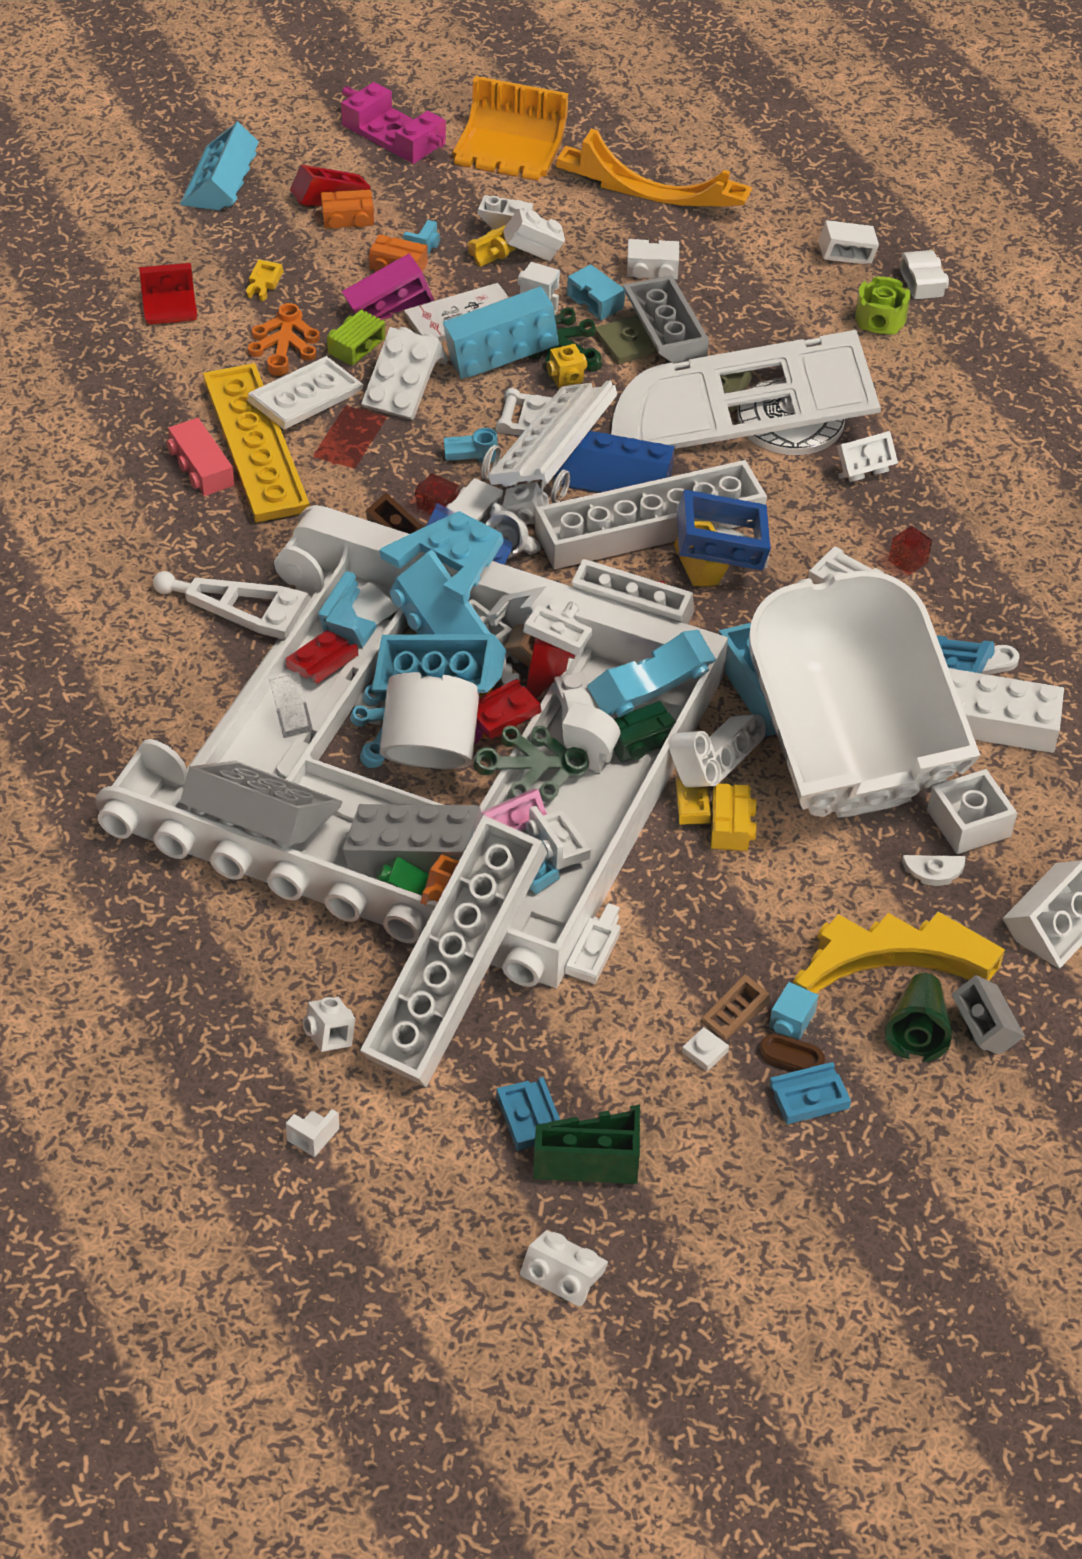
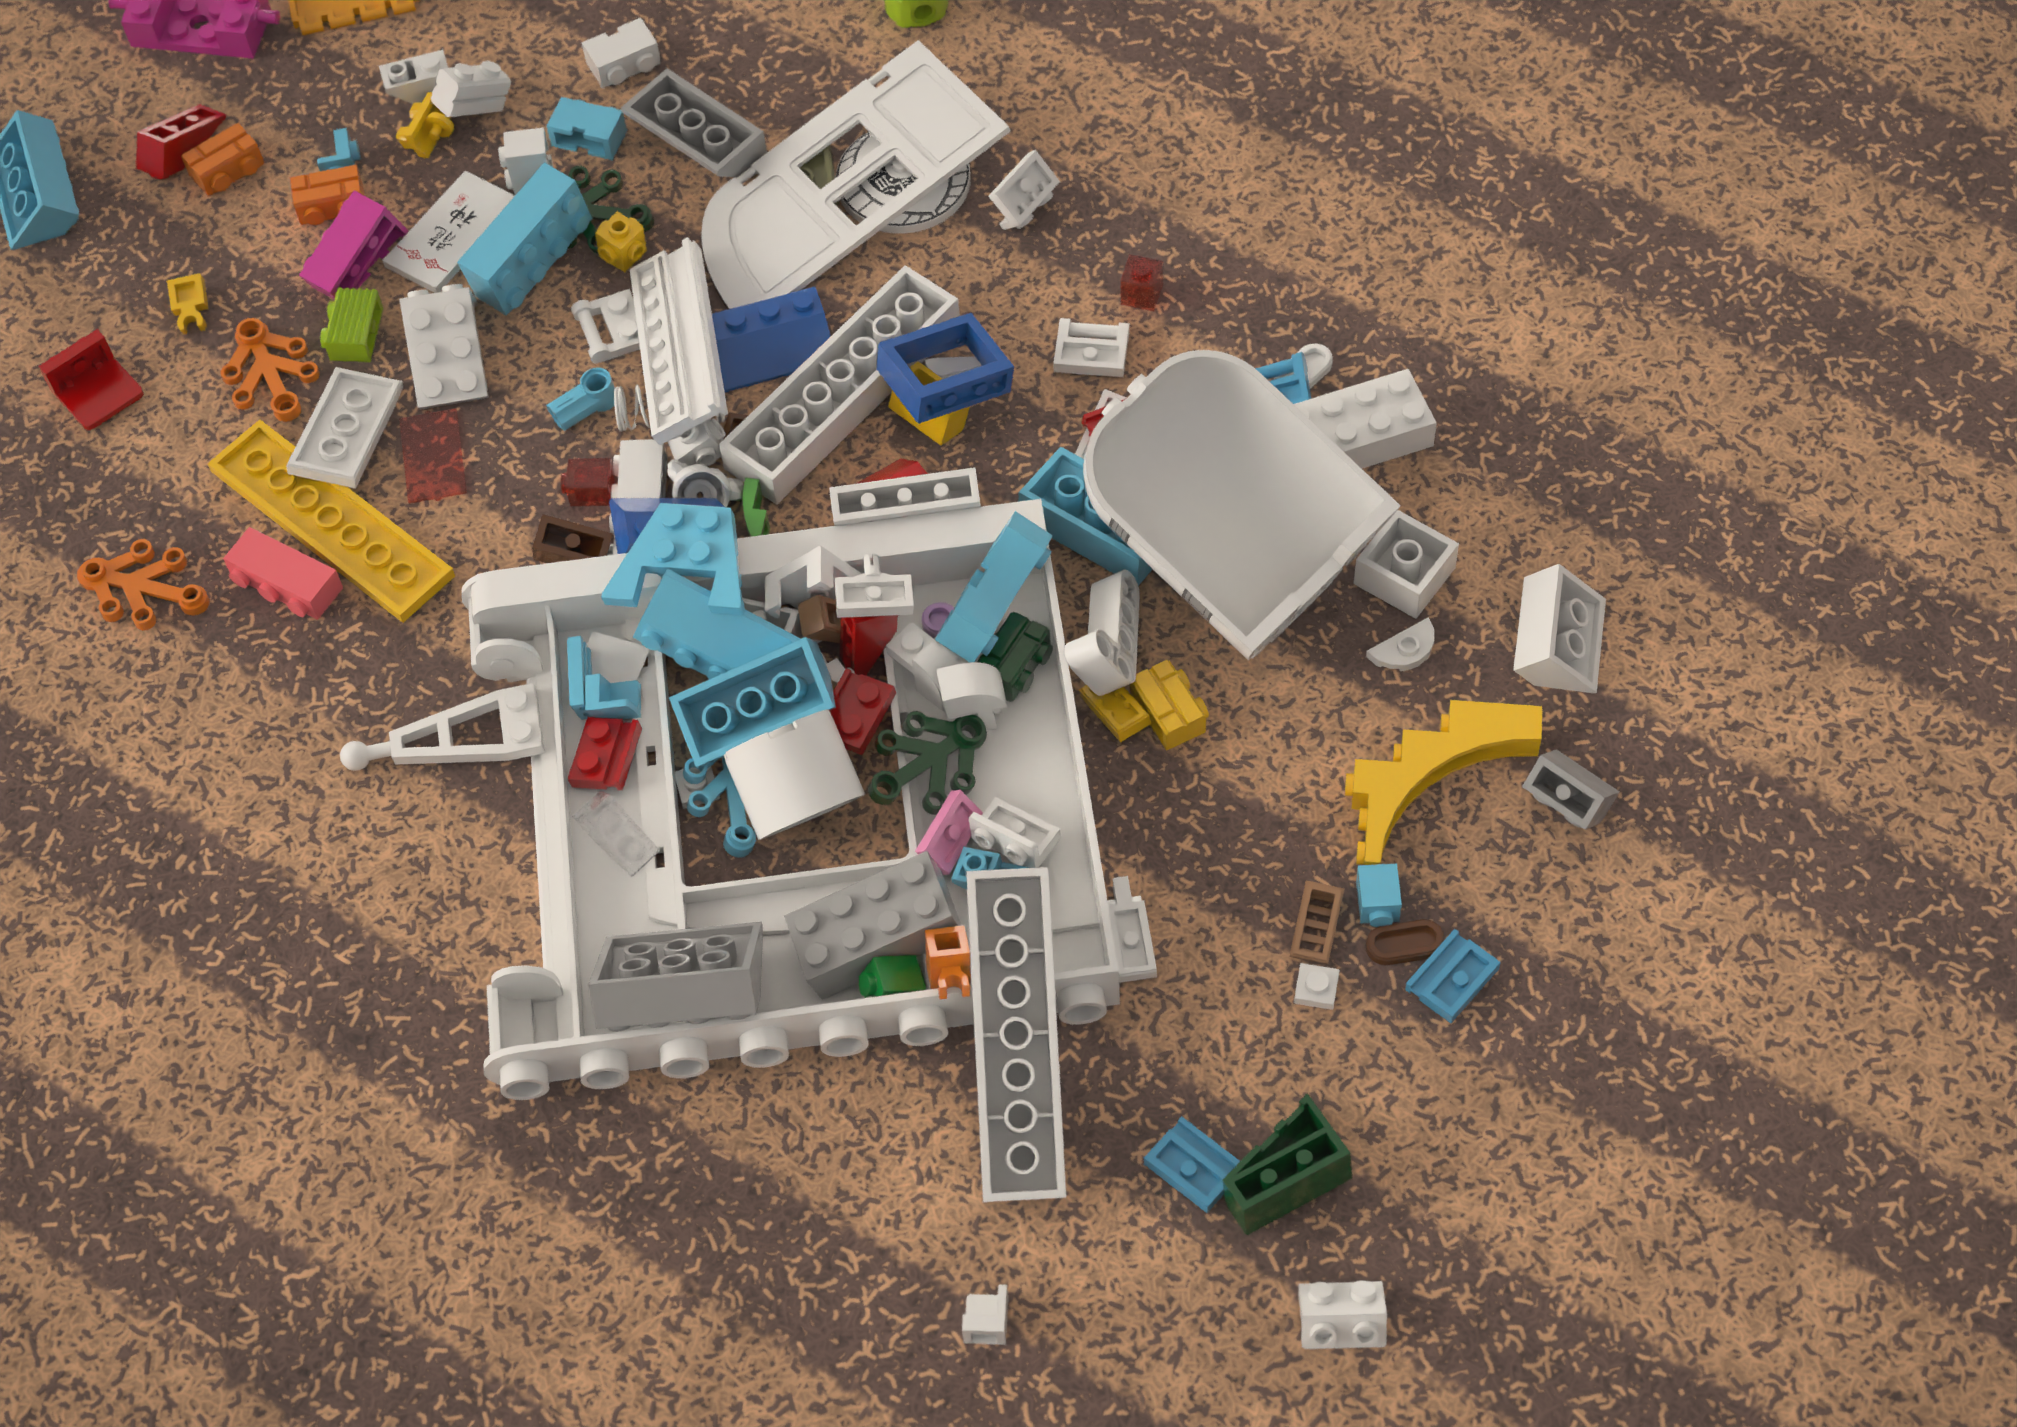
camera: 25 degrees left, 10 degrees up
(91, 405) = (140, 583): none -> orange plant
(329, 1024) = (923, 1187): white brick -> none
(535, 557) = (755, 518): none -> bright green slope
(626, 339) = (659, 171): olive plate -> none
(920, 1020) = (1509, 830): dark green cone -> none

